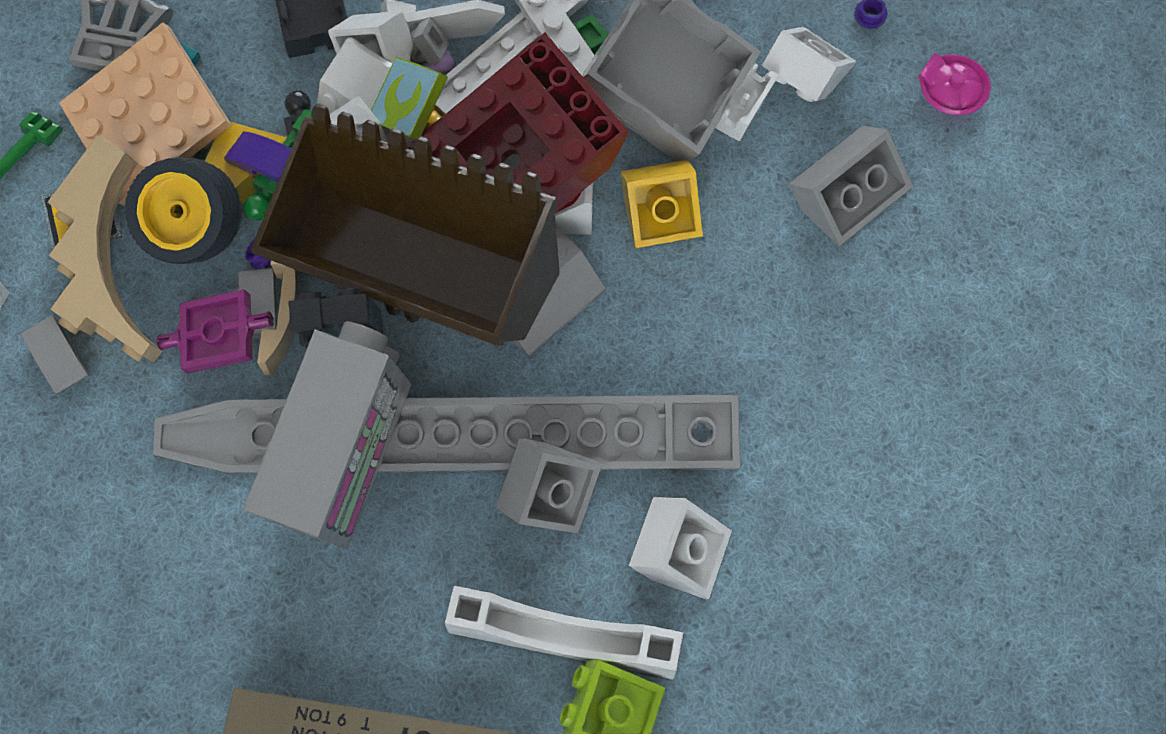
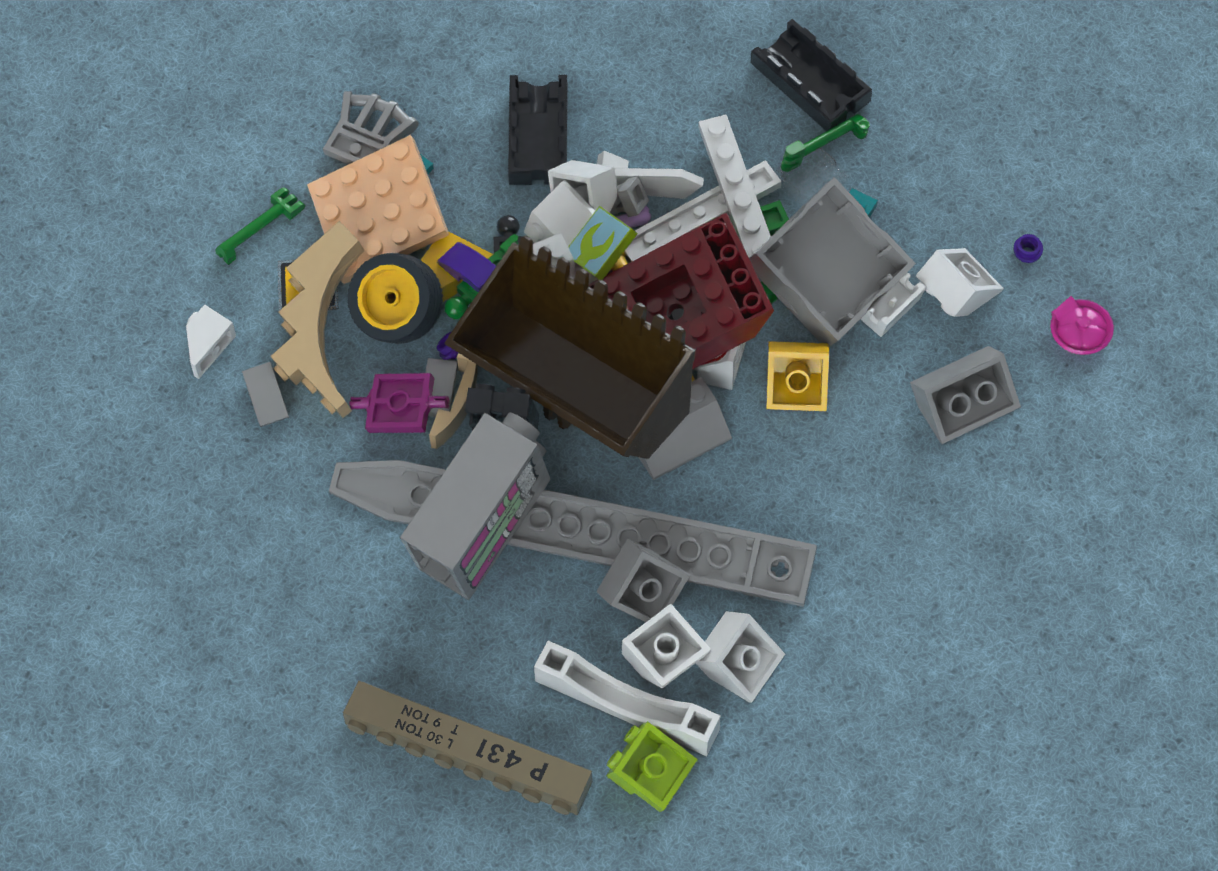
camera: 15 degrees right, 5 degrees down
(594, 560) = (664, 647): none -> white slope

